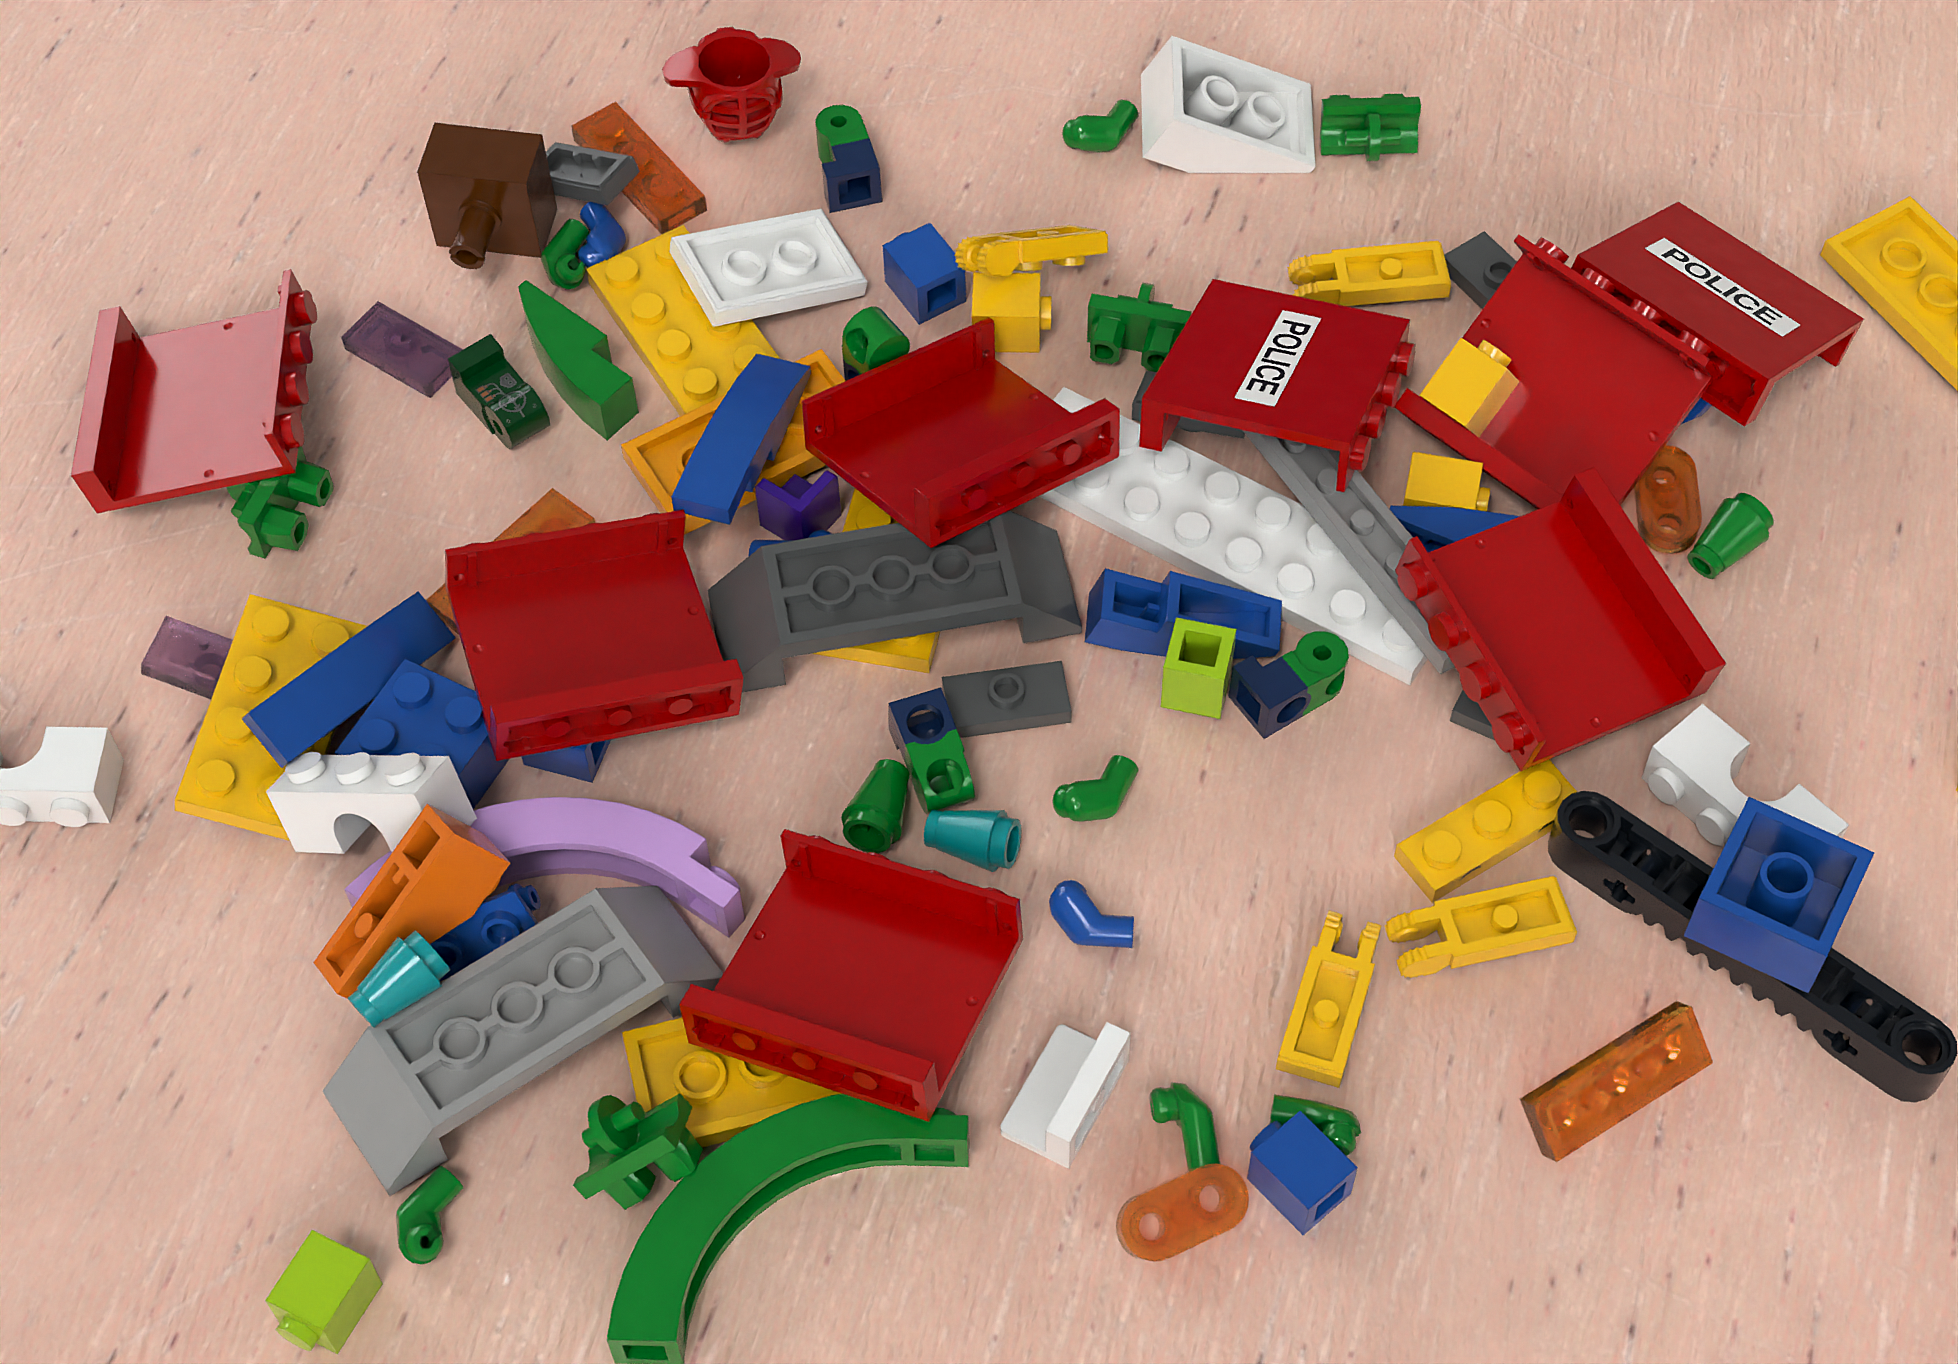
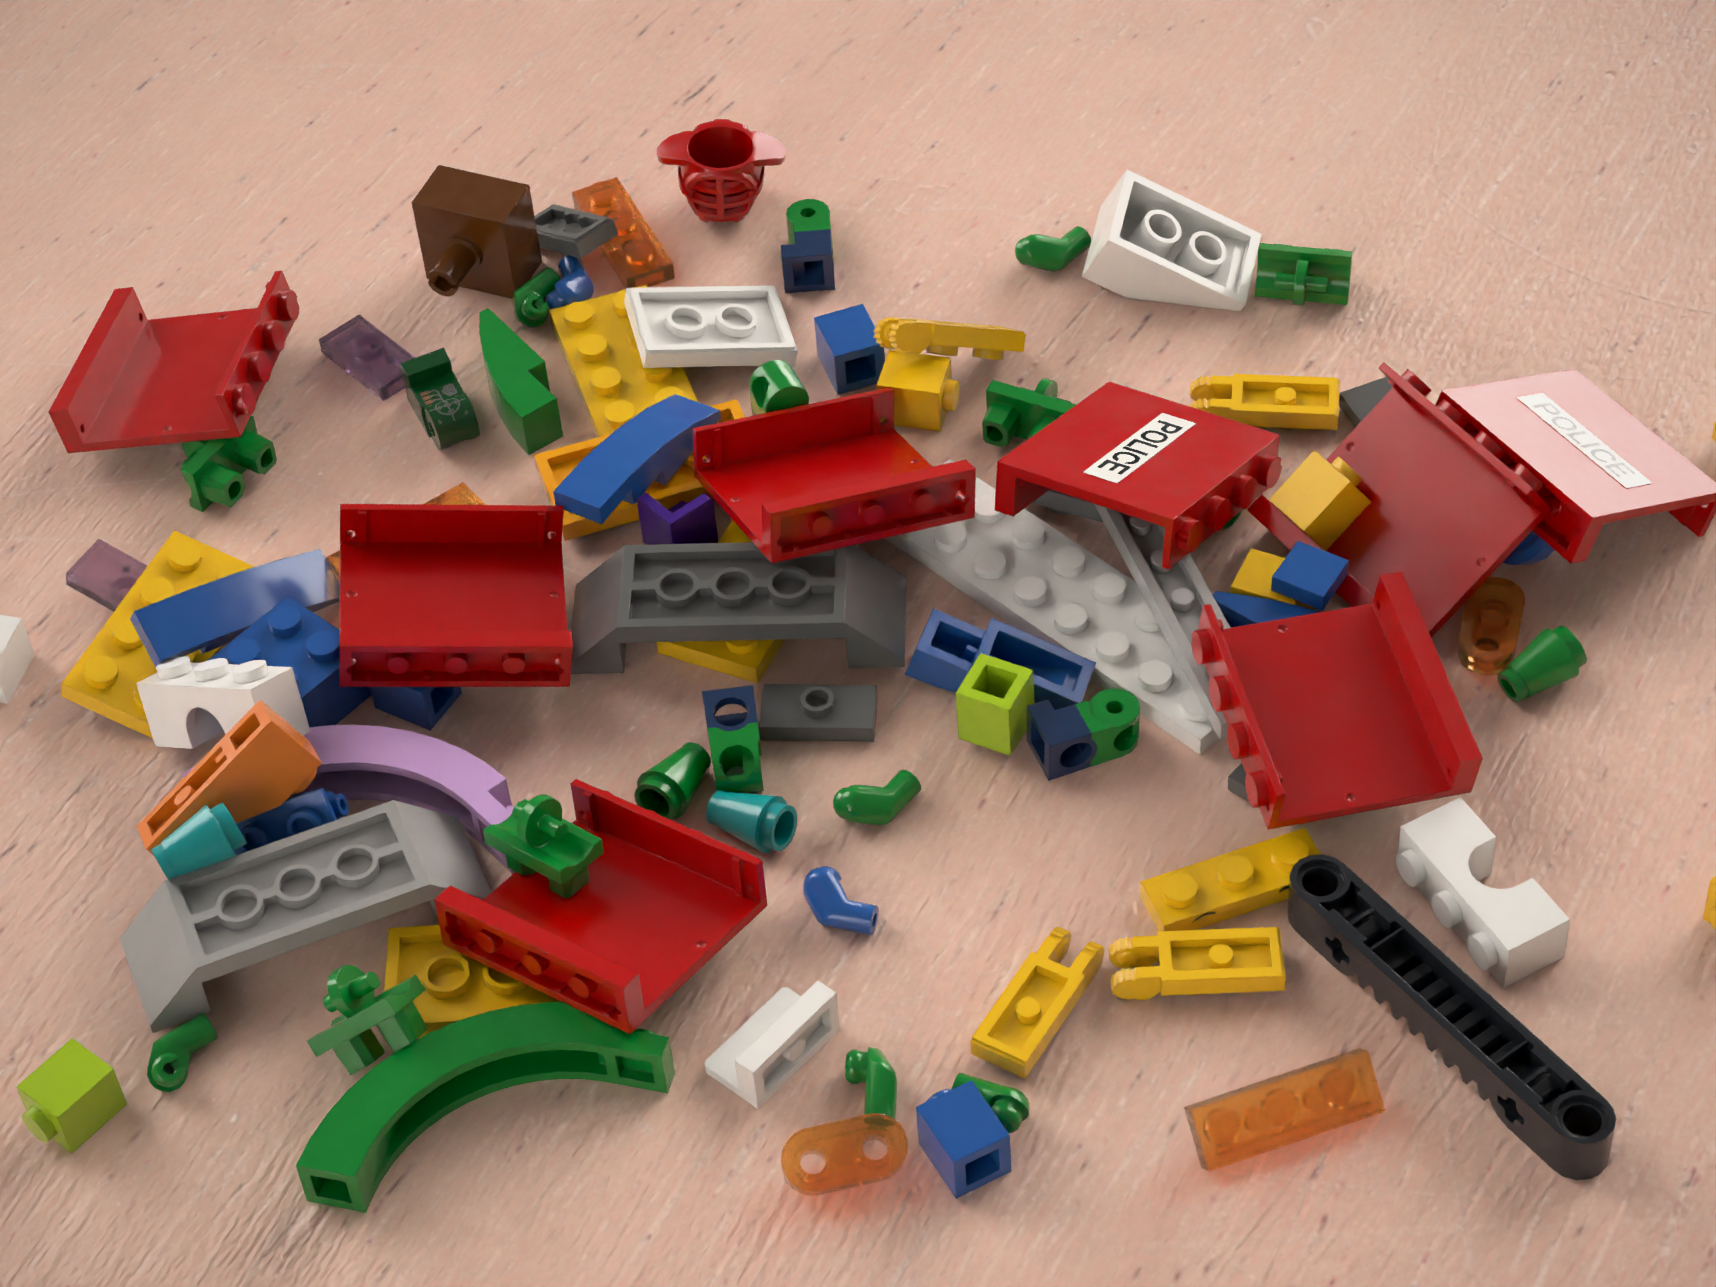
camera: 15 degrees right, 10 degrees down
(774, 912) = (543, 842): none -> green hips
(1485, 476) = (1310, 575): none -> blue tile
(1778, 894) = (1467, 957): blue brick -> none

